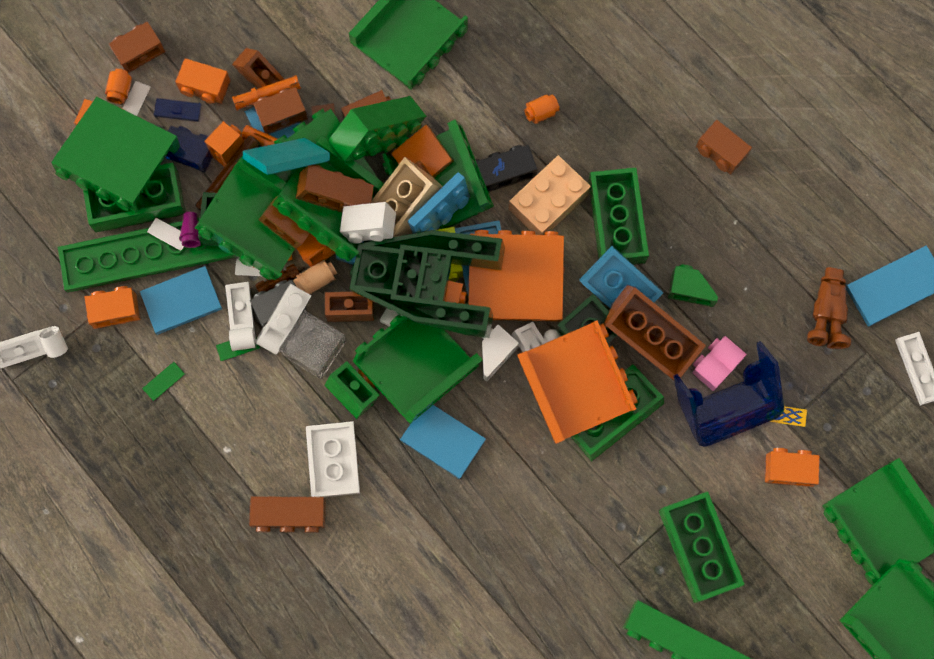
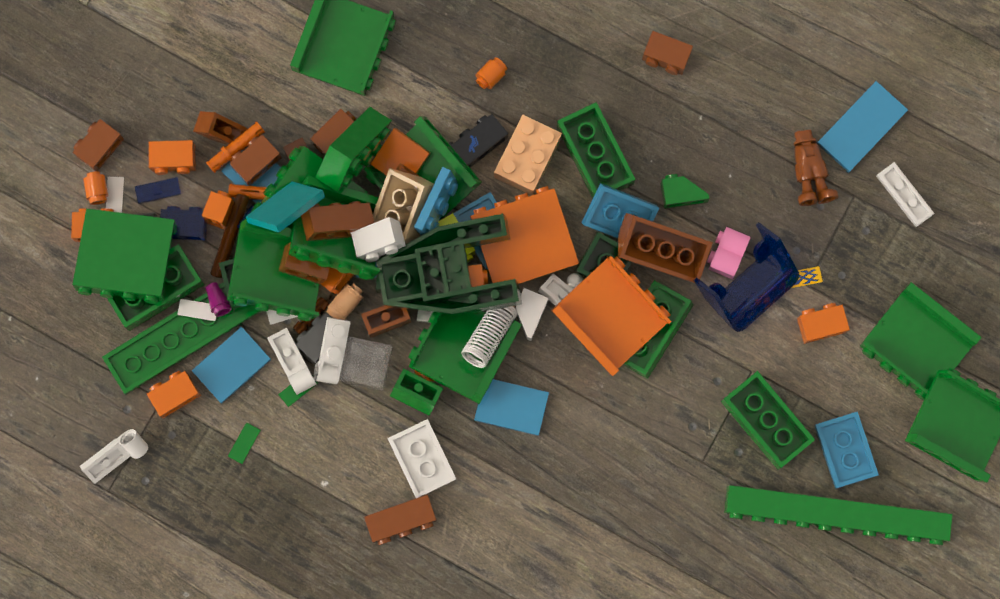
camera: 20 degrees left, 5 degrees up
(464, 346) = (500, 314): none -> white piece
(773, 608) = (846, 450): none -> dark azure plate

